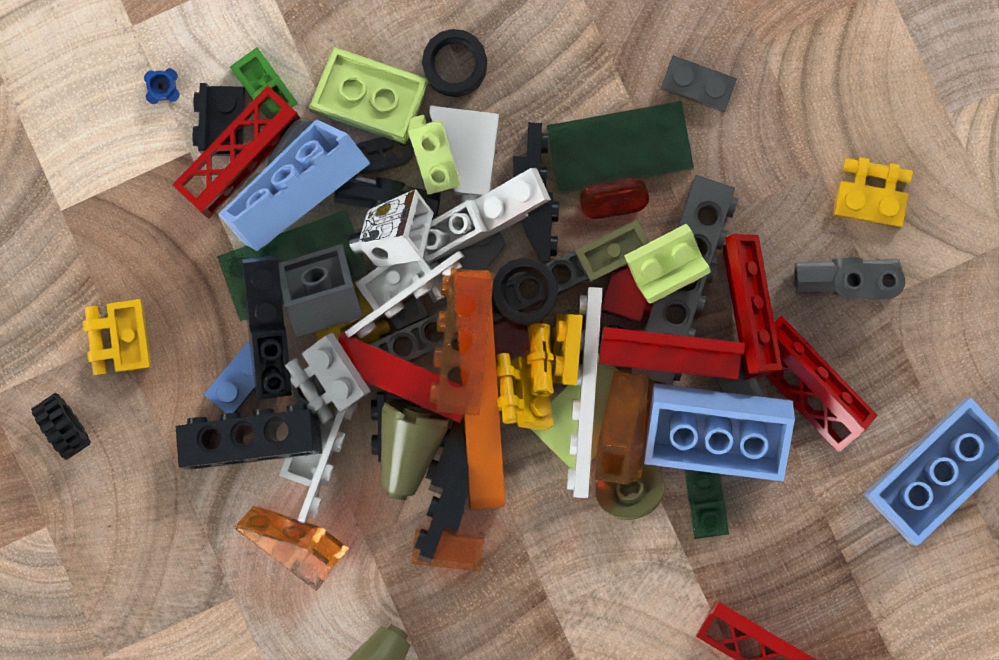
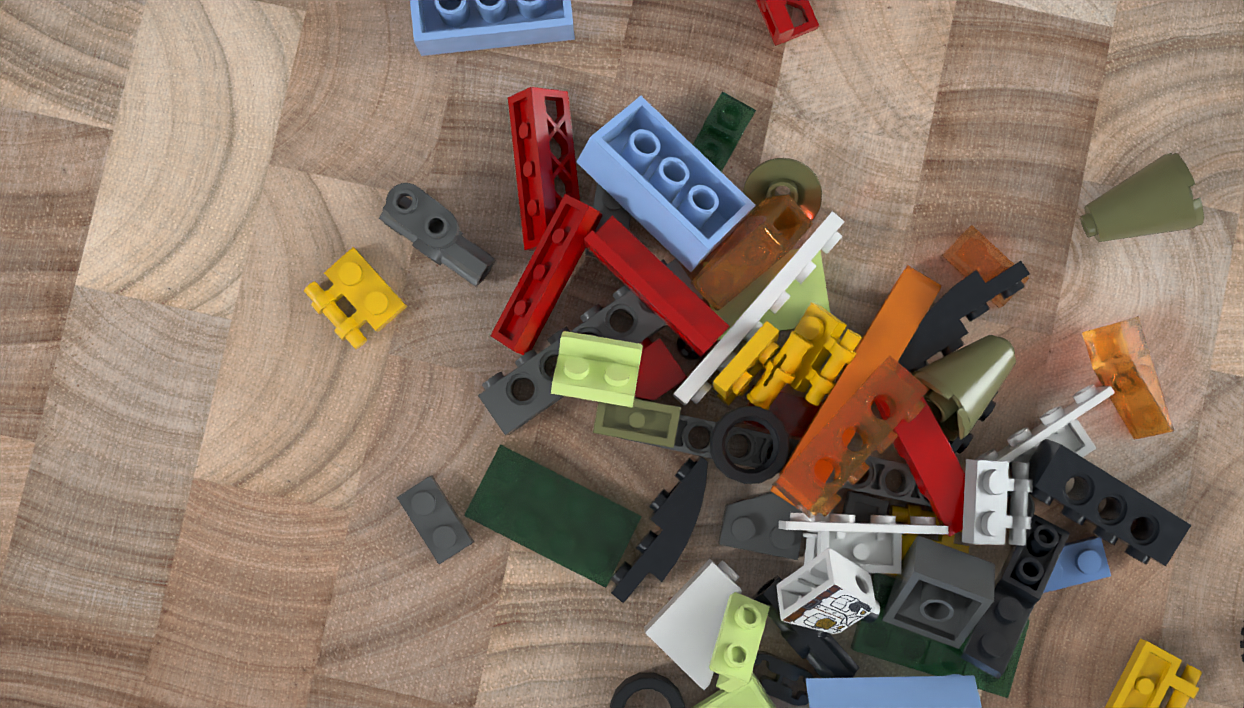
camera: 155 degrees left, 0 degrees up
(485, 215) = (731, 545): white slope -> none
(614, 198) = (595, 471): clear red plate -> none

